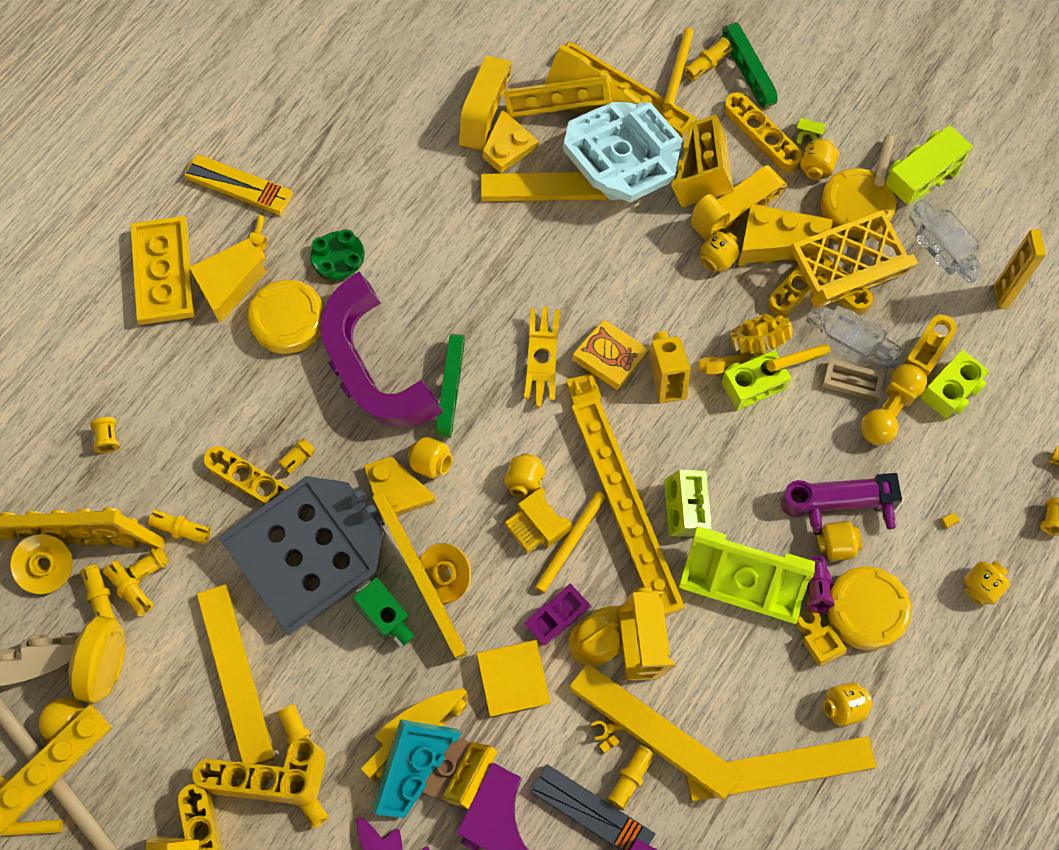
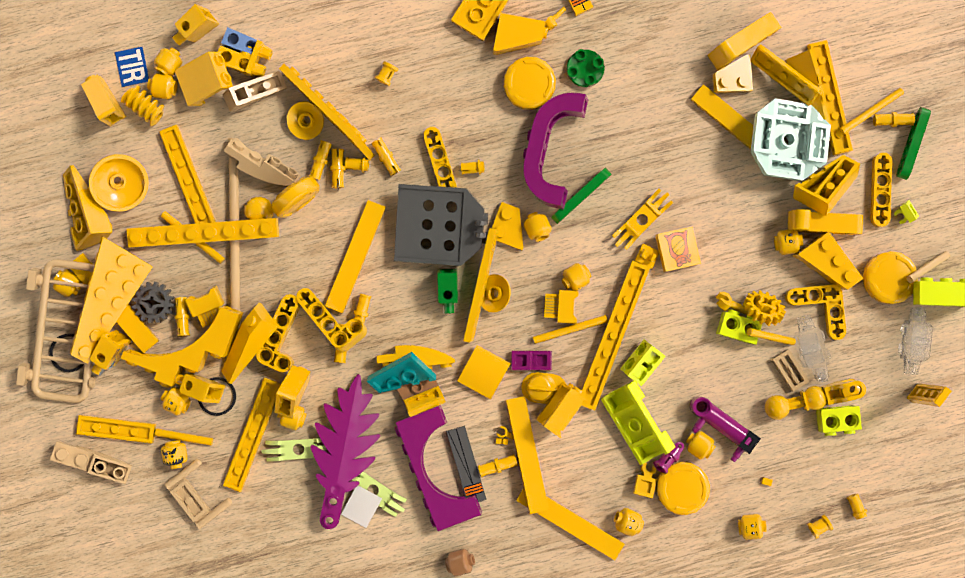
camera: 40 degrees right, 20 degrees up
(669, 359) = (700, 283): yellow torso -> none
(819, 159) = (894, 235): yellow head -> none
(868, 275) = (852, 325): yellow fence -> none

